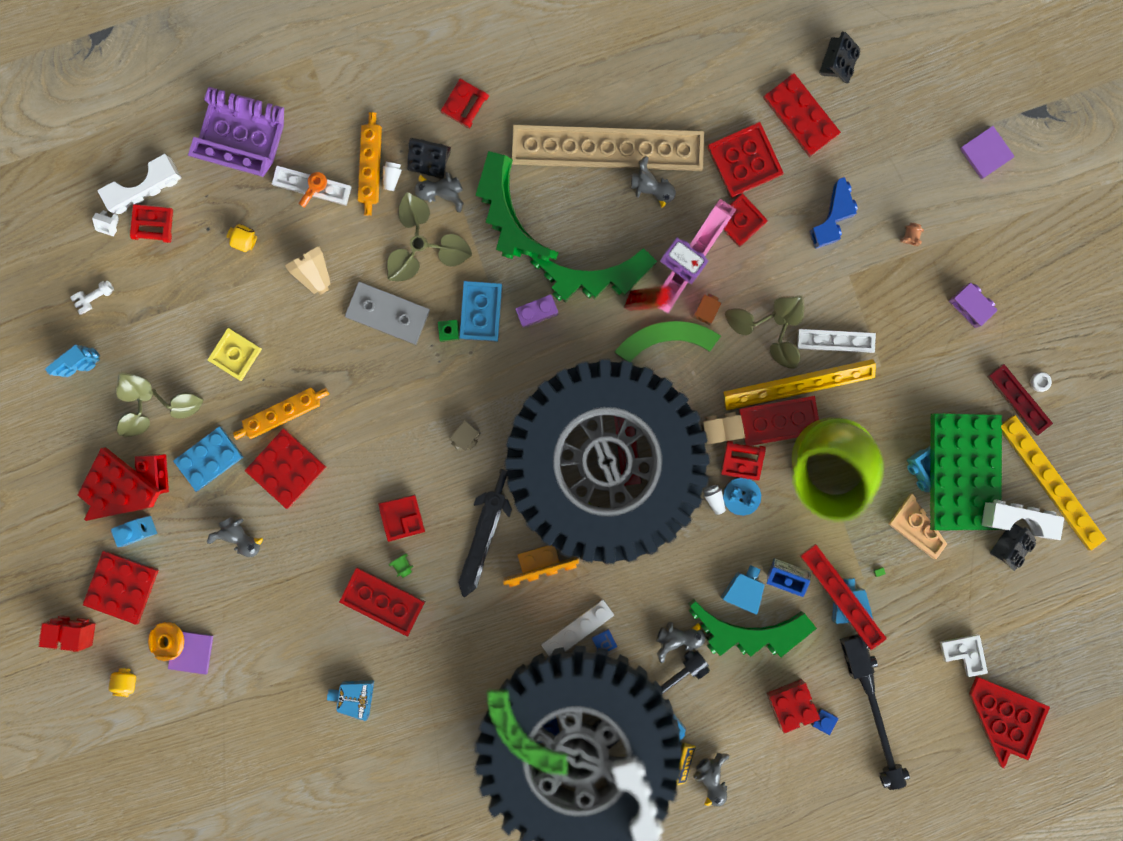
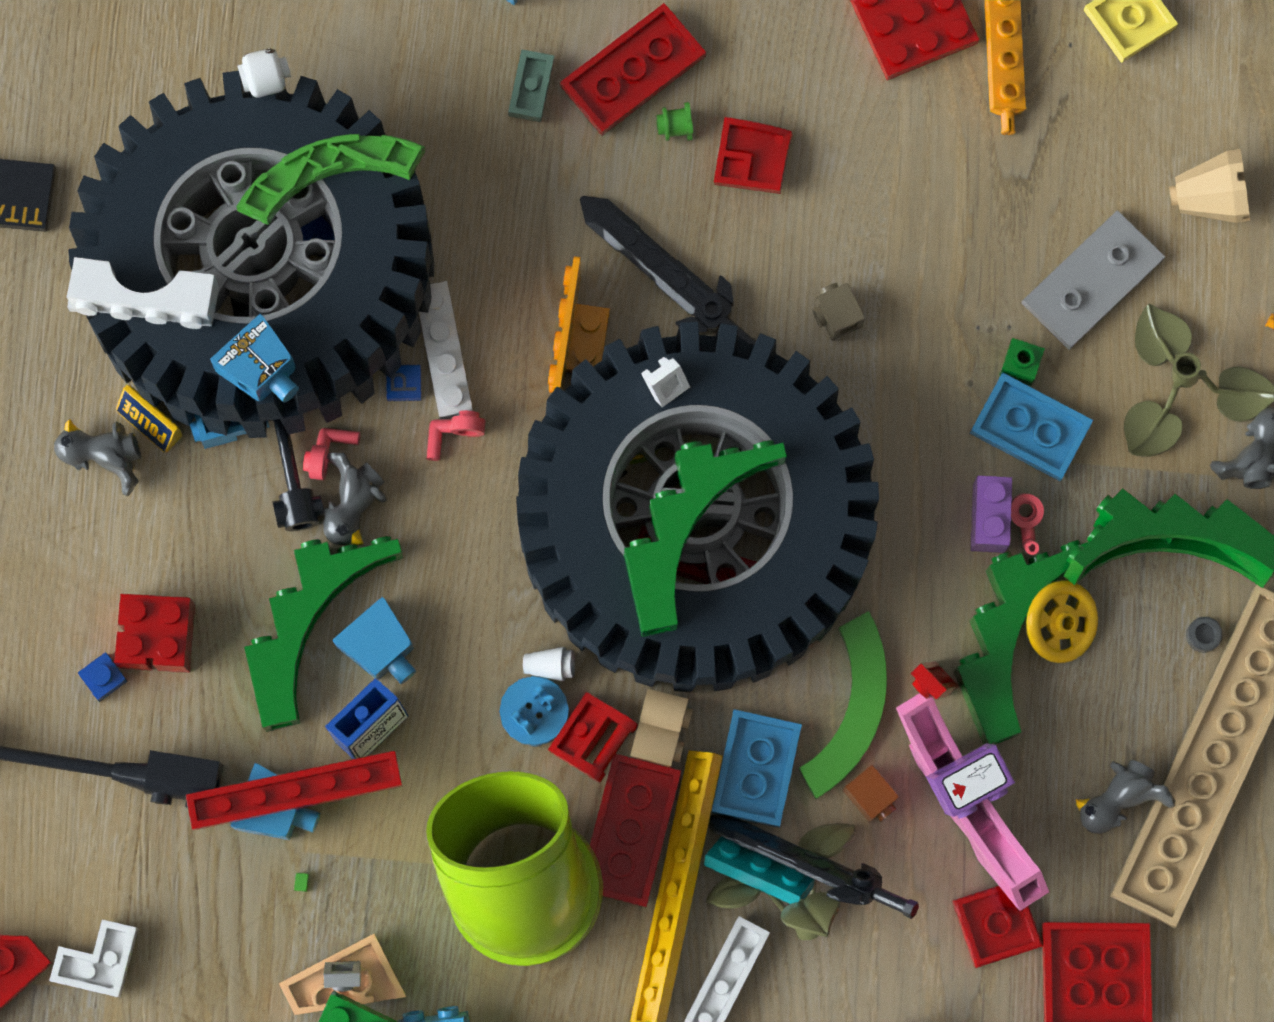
camera: 110 degrees right, 10 degrees down
(415, 651) = (531, 85): none -> sand green plate
(485, 796) = (263, 72): none -> white head
(531, 291) = (1028, 522): none -> coral plate
(548, 179) = (1204, 634): none -> dark grey tile
(556, 505) = (666, 381): none -> white tile
(576, 252) = (1038, 618): none -> yellow plate
(611, 599) = (466, 424): none -> coral plate
(647, 722) = (257, 362): none -> dark azure torso
(656, 466) = (674, 516): none -> green arch
(665, 668) = (316, 460): none -> coral plate
(720, 372) = (756, 768): none -> dark azure plate
(764, 295) = (849, 885): none -> black sword
(772, 347) = (758, 871): none -> teal plate
(920, 529) = (342, 975): none -> light grey plate

